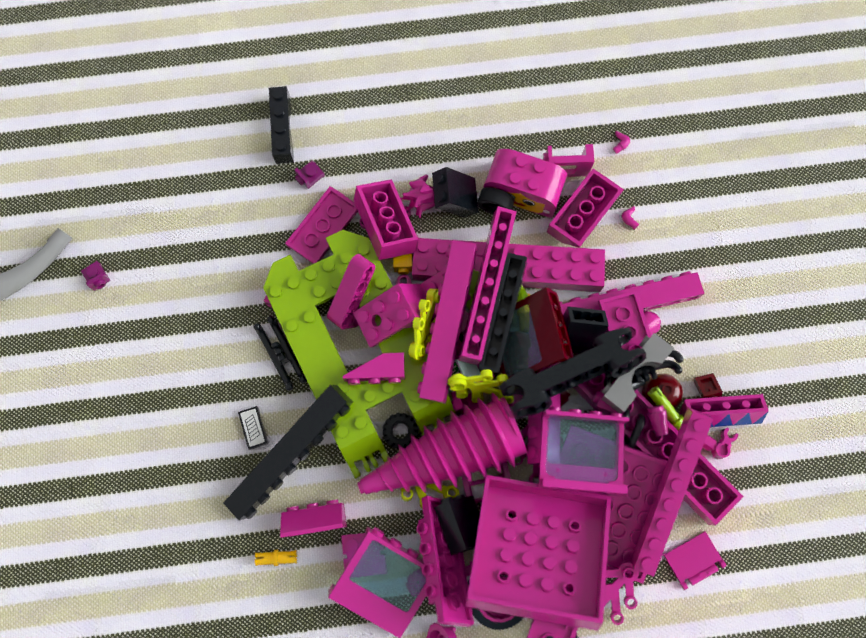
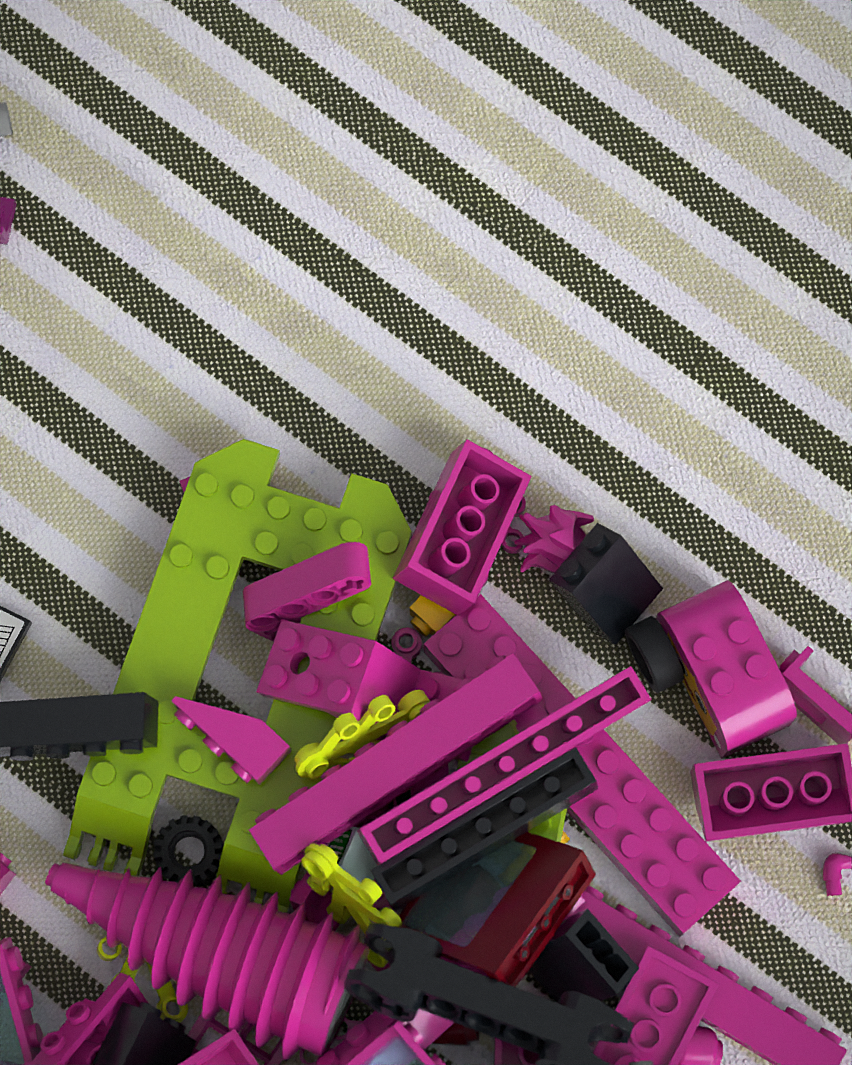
camera: 45 degrees right, 0 degrees up
(280, 125) = (441, 258): black arch -> none
(280, 352) = (132, 575): black piece -> none
(309, 174) = (428, 352): magenta bracket -> none
(326, 218) = (376, 444): dark pink plate -> none

